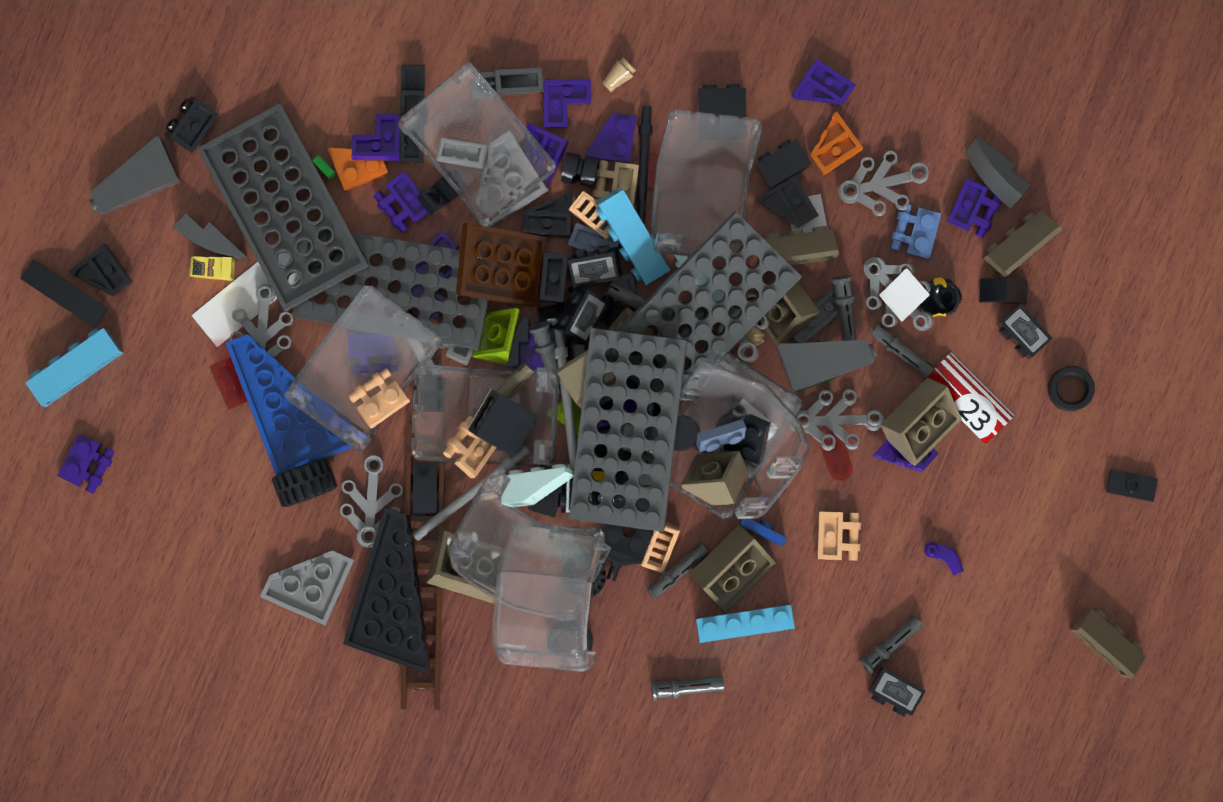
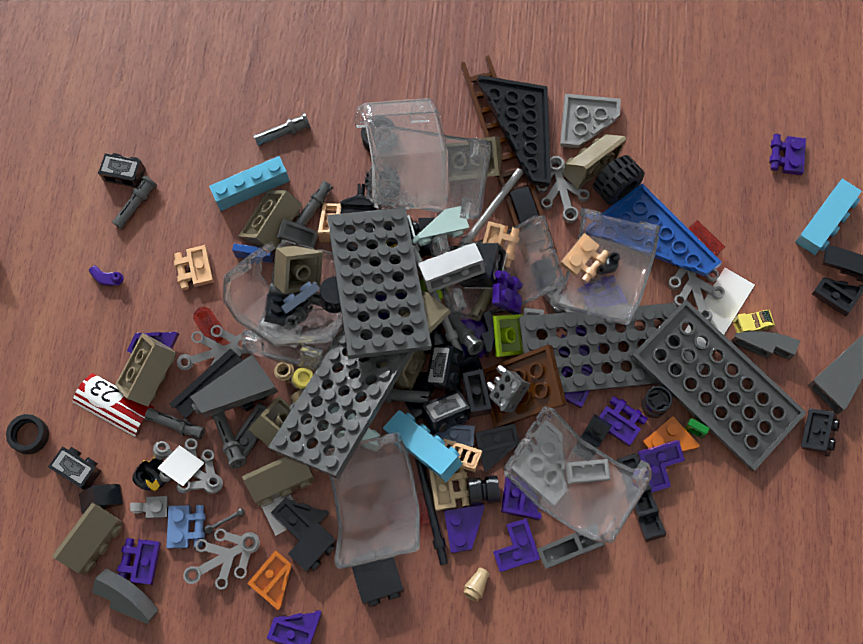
camera: 165 degrees right, 15 degrees down
(323, 522) = (593, 159): none -> dark tan slope
(351, 381) = (611, 264): none -> black arm
(358, 208) = (656, 402): none -> black wheel
(483, 377) = (505, 292): none -> dark purple plate
(518, 265) = (508, 389): none -> dark grey piece
(538, 420) = (452, 267): none -> brick
(704, 536) = (297, 233): none -> dark grey tile
(744, 349) = (301, 377): none -> light yellow tile
(769, 367) = (284, 372): none -> tan cone
(852, 384) = (222, 365): none -> black fence
(890, 221) = (209, 528): none -> dark grey hinge
(945, 262) = (154, 507): none -> light grey plate

